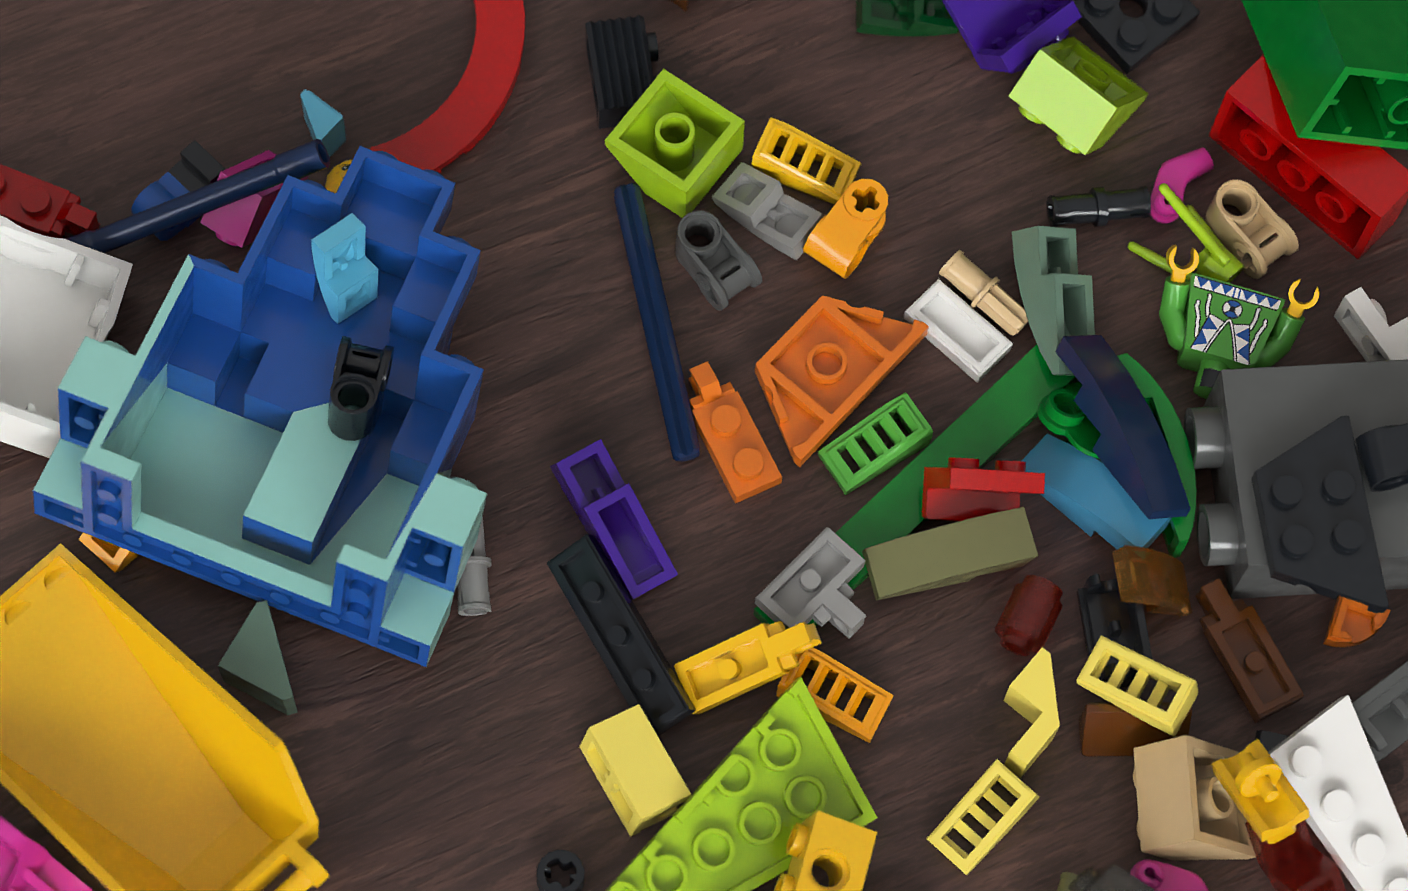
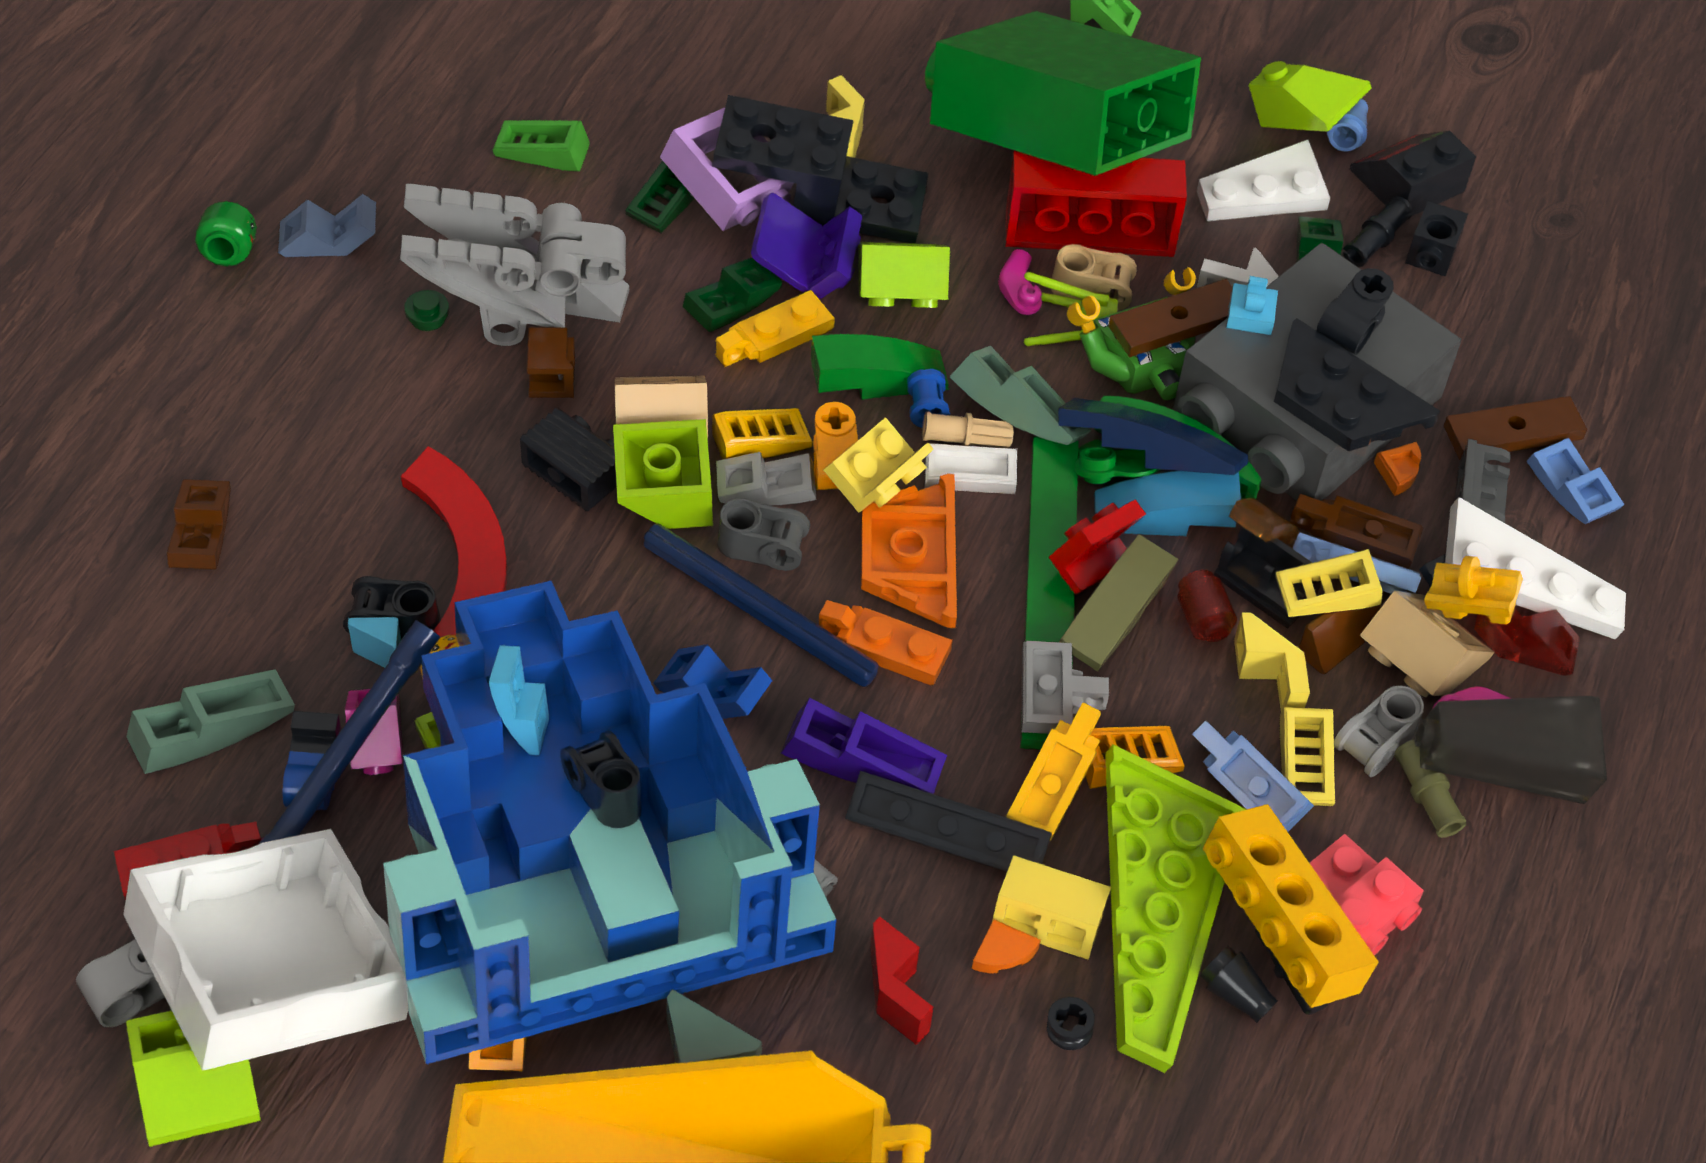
camera: 40 degrees left, 15 degrees down
(140, 95) = (207, 719): none -> sand green slope
(358, 99) = (396, 599): none -> black piece
(456, 717) = (893, 964): none -> red slope
(549, 362) = (732, 691): none -> blue slope
(567, 773) = (1004, 949): none -> orange tile
(741, 72) = (660, 399): none -> tan slope
(858, 270) = (874, 465): none -> light yellow bracket
(904, 447) = (1000, 546): bright green slope -> none
(910, 797) = (1251, 775): none -> medium blue hinge
(913, 71) = (775, 330): none -> yellow hinge
(963, 173) = (869, 363): none -> green slope
(980, 235) = (927, 394): none -> blue bush
(1063, 844) = (1376, 733): none -> light grey piece
(1098, 206) = (985, 328): black pin -> none
(1224, 708) = (1391, 576): none -> light blue hinge
(1232, 321) = (1172, 318): none -> reddish brown tile
(1321, 374) = (1252, 307): none -> medium azure tile

